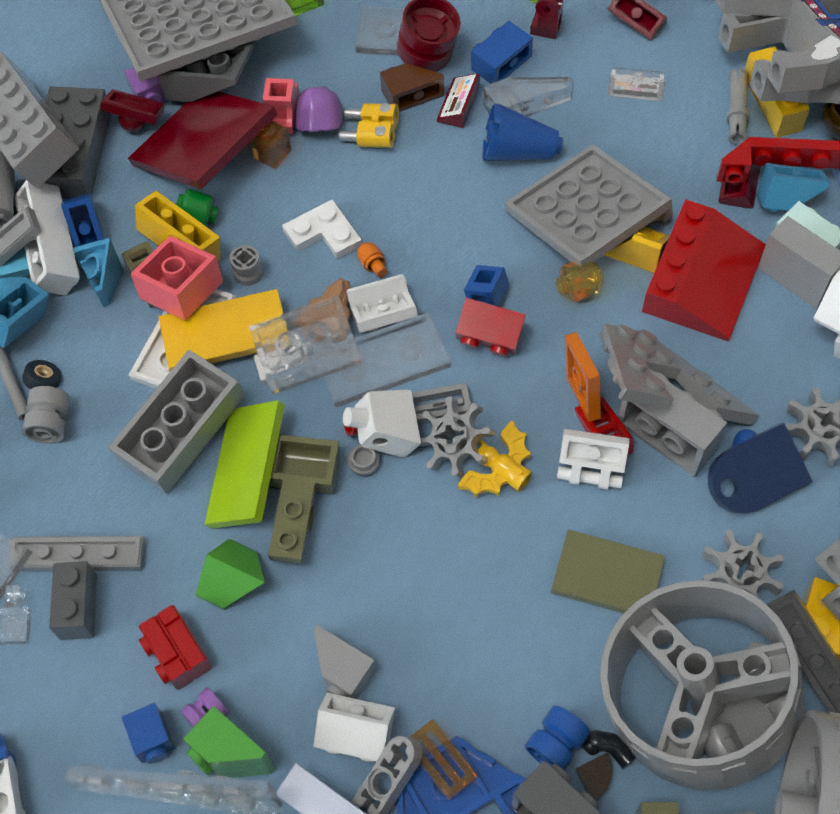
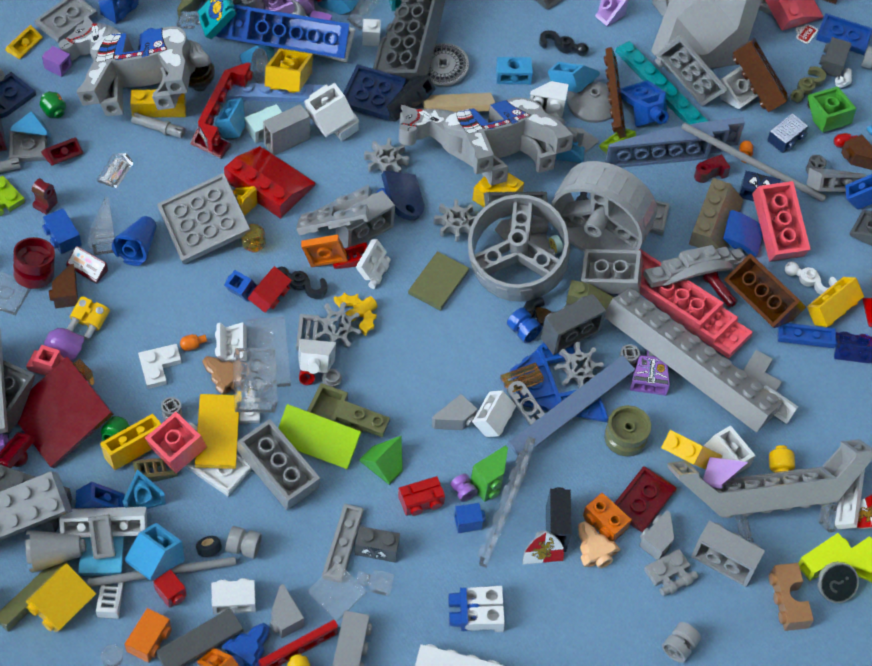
camera: 85 degrees left, 5 degrees down
(527, 367) = (301, 281): none -> black piece

